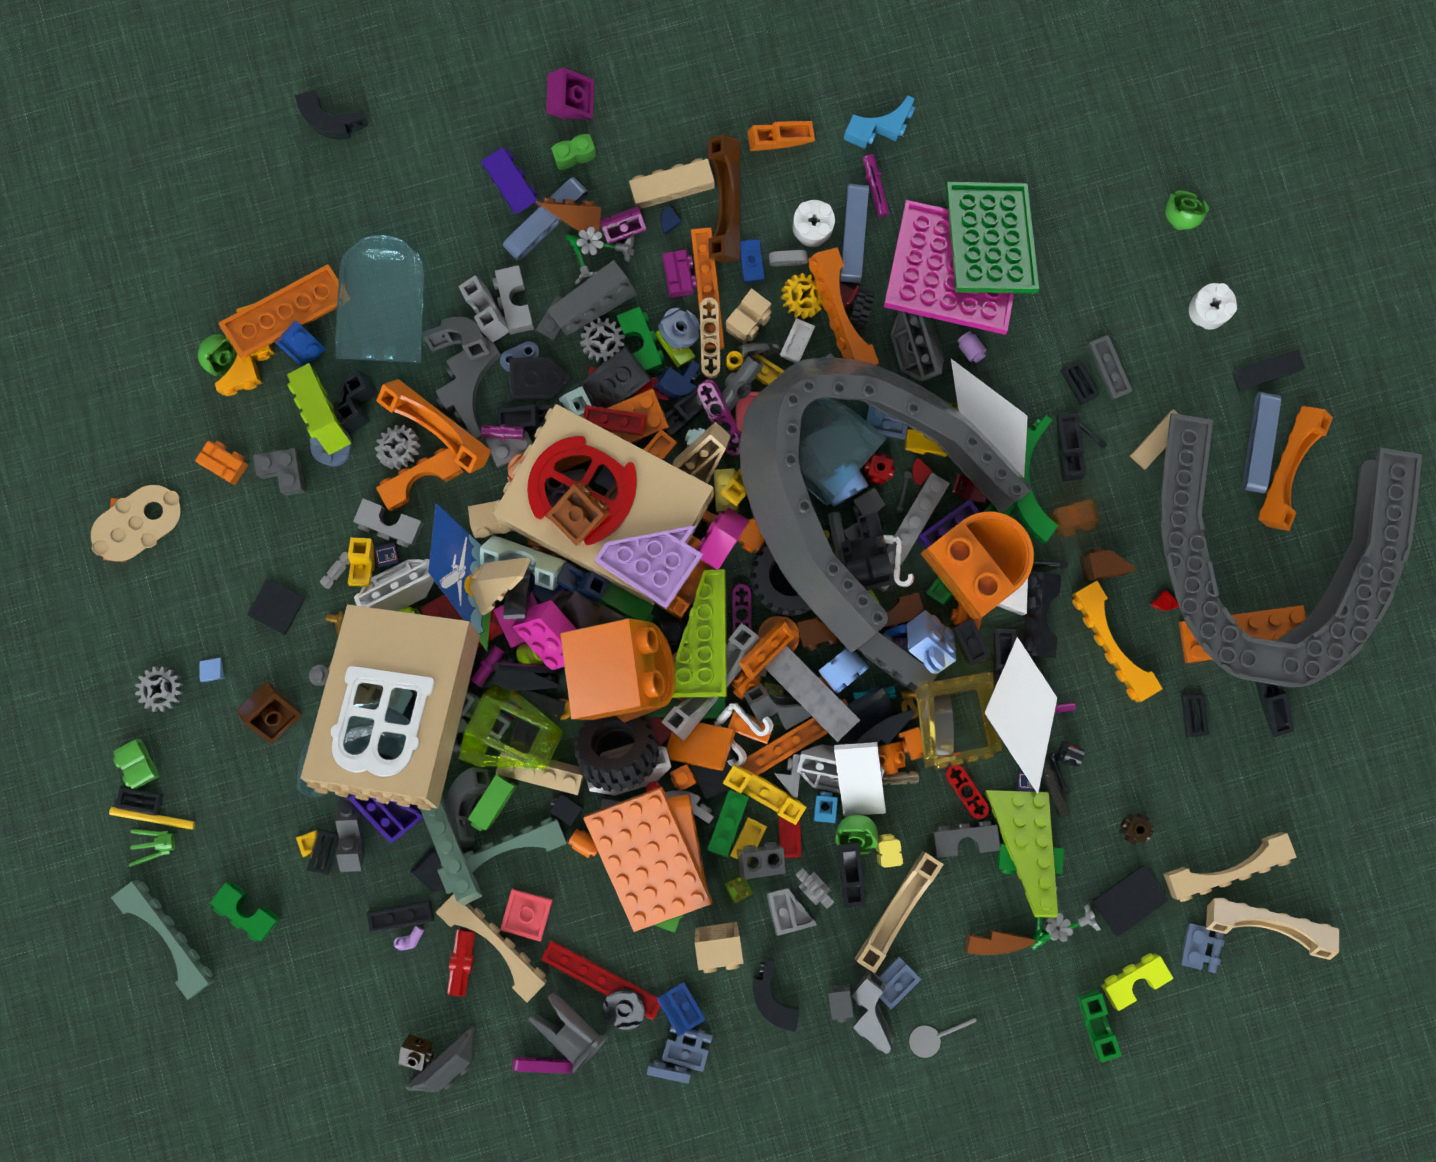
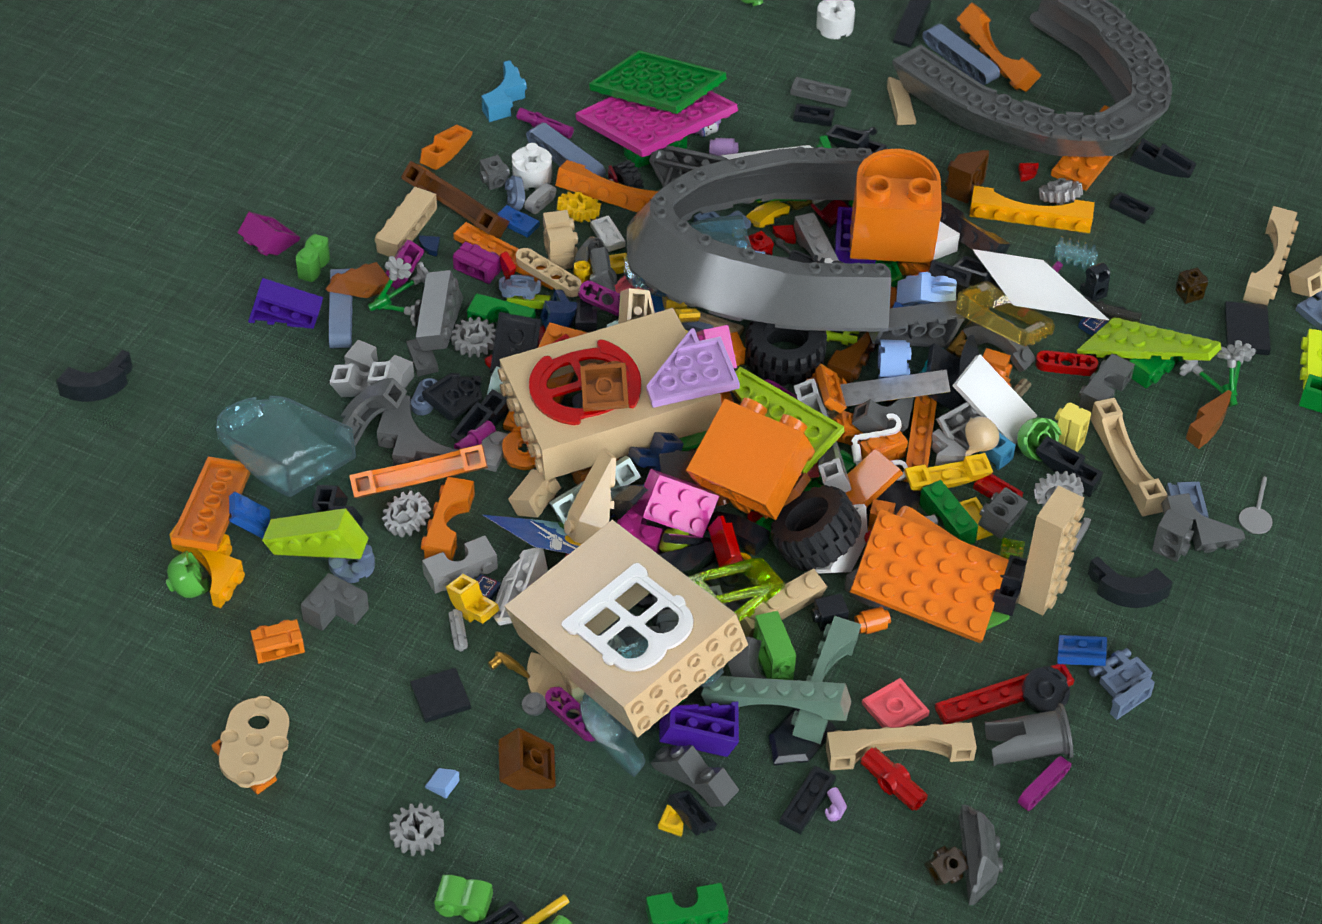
camera: 45 degrees left, 35 degrees down
(552, 696) = (724, 542): none -> red panel
(692, 300) = (507, 264): none -> red tile
(718, 910) = (1008, 595): none -> black slope
(772, 239) = (515, 192): none -> sand blue plate
(780, 200) = (493, 172): none -> dark grey brick
(815, 795) = (981, 435): none -> tan hair
(1093, 714) = (1076, 253): none -> clear light blue piece
(1156, 650) = (1060, 191): none -> light grey gear

